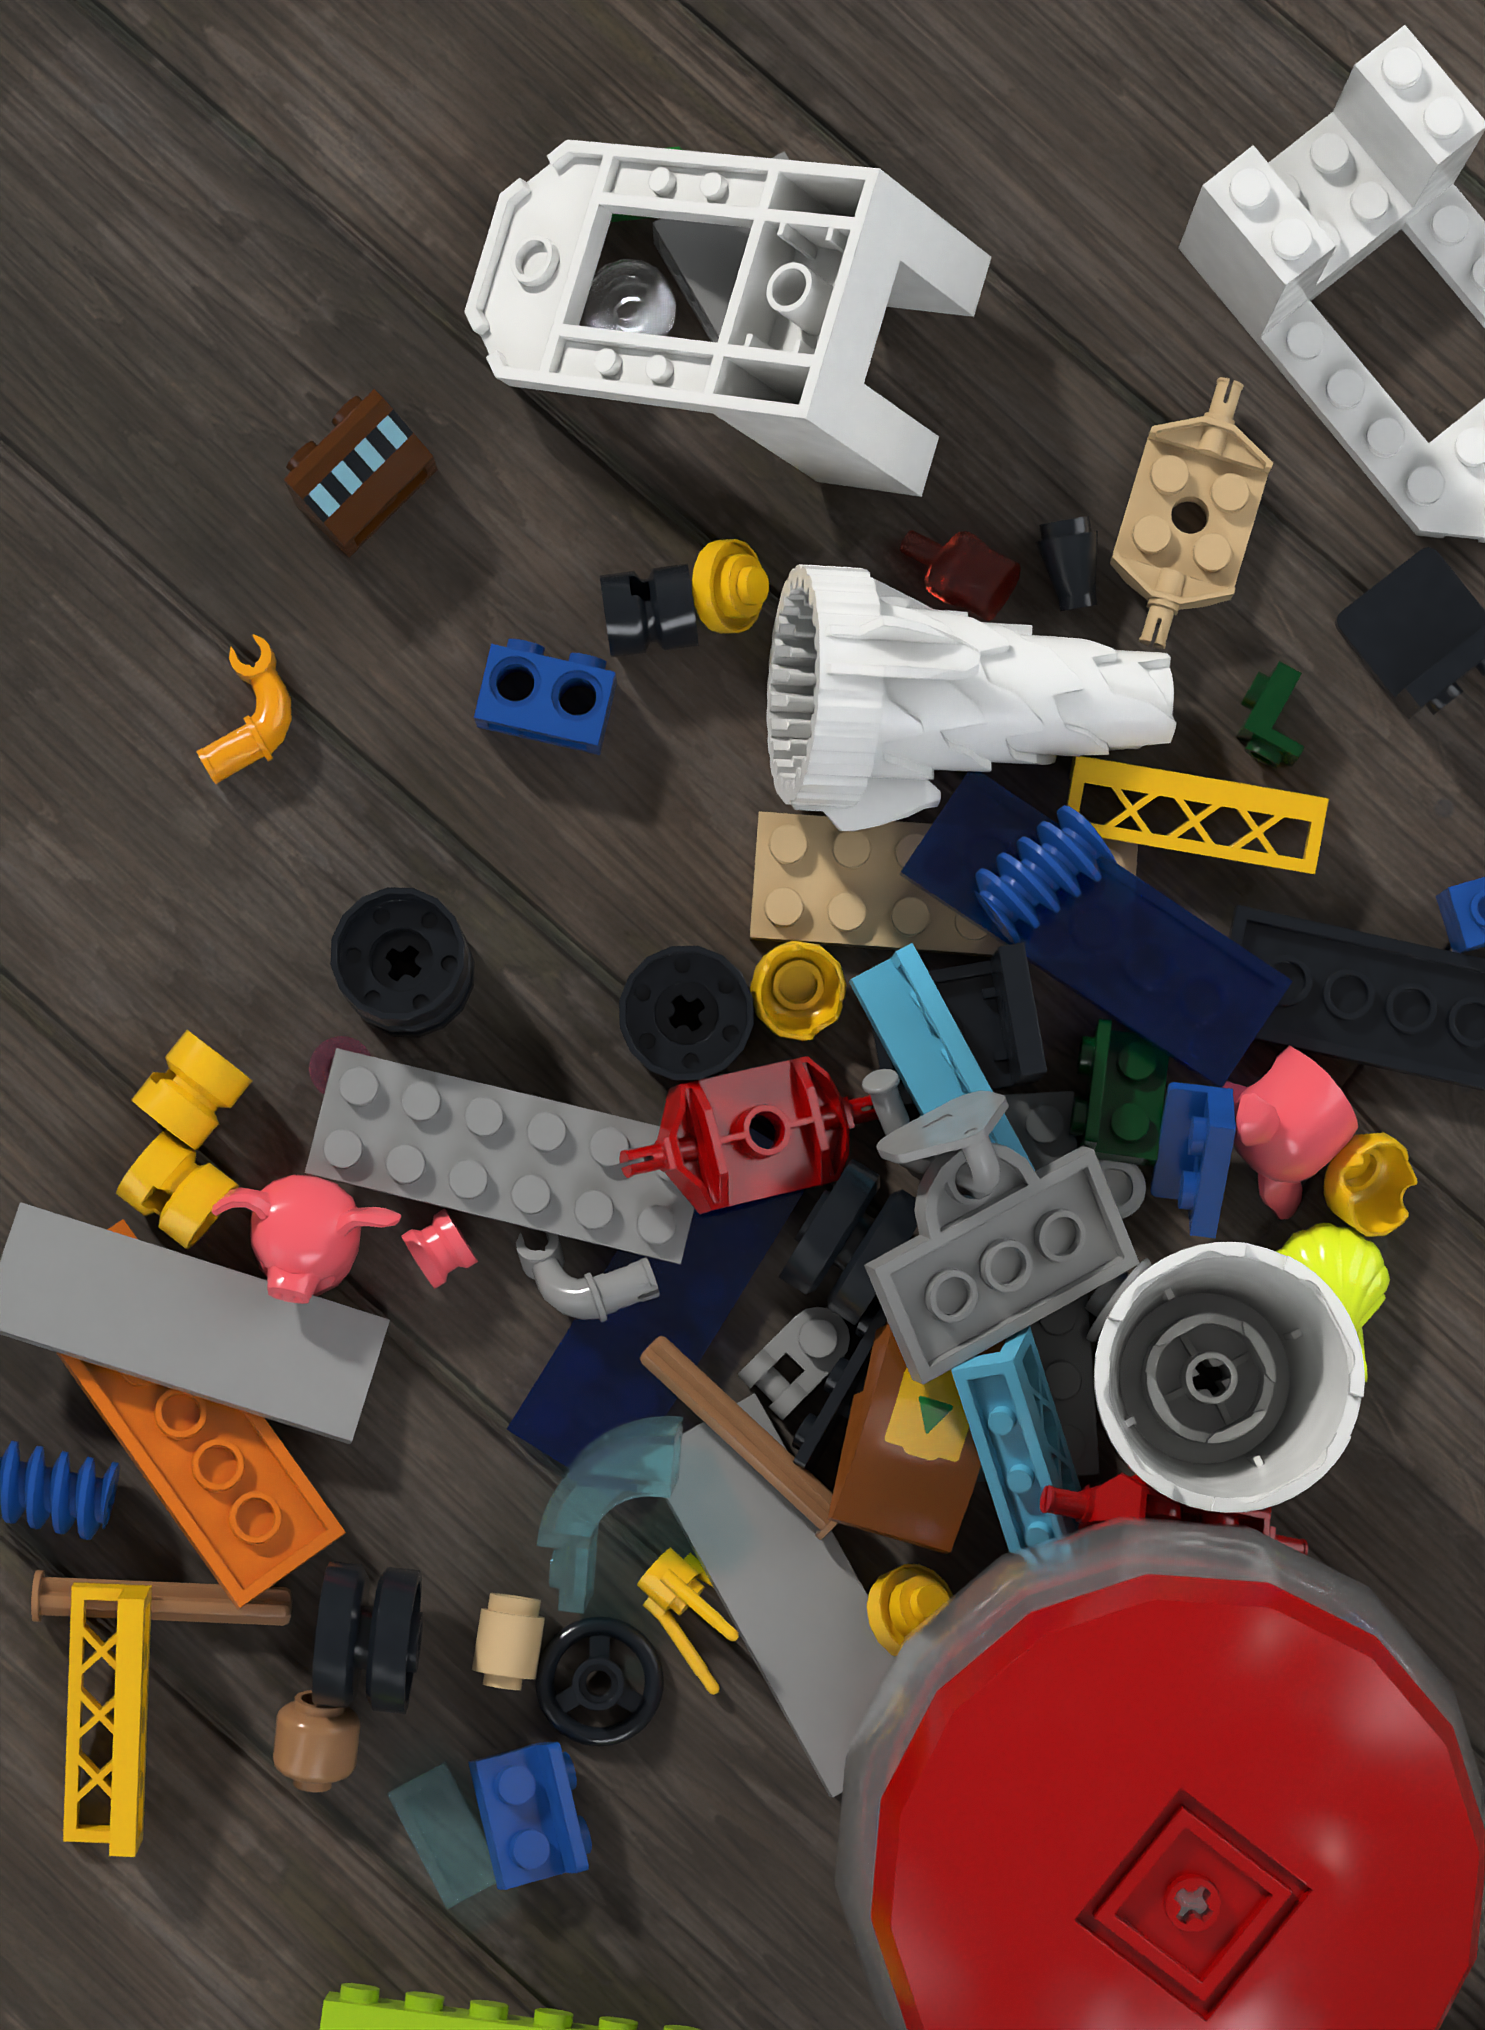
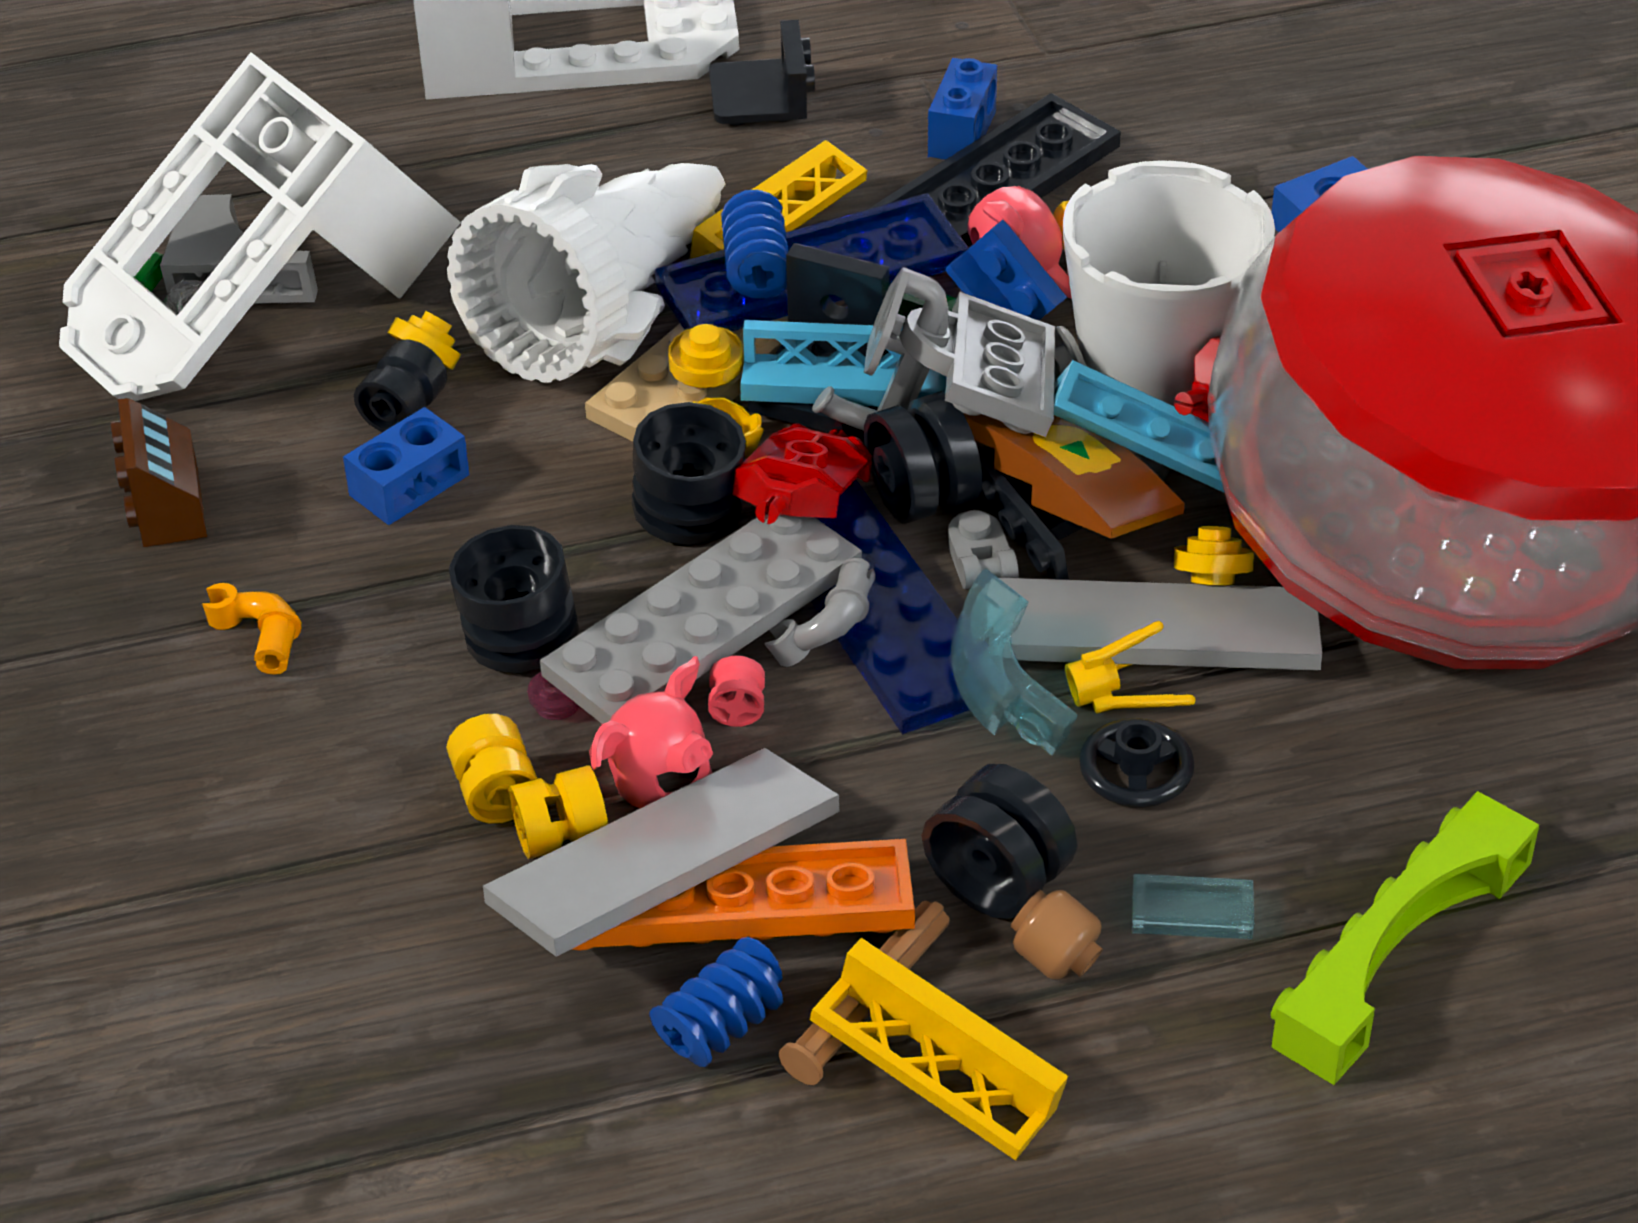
camera: 55 degrees left, 40 degrees down
(508, 1641) = (1071, 782): tan brick -> none
(530, 1814) = (1214, 829): blue bracket -> none
(740, 1431) = (1021, 576): medium nougat axle -> none
(873, 911) = (705, 356): none -> yellow plate
(1199, 463) = (581, 133): tan plate -> none
(1265, 701) = (746, 160): dark green bracket -> none

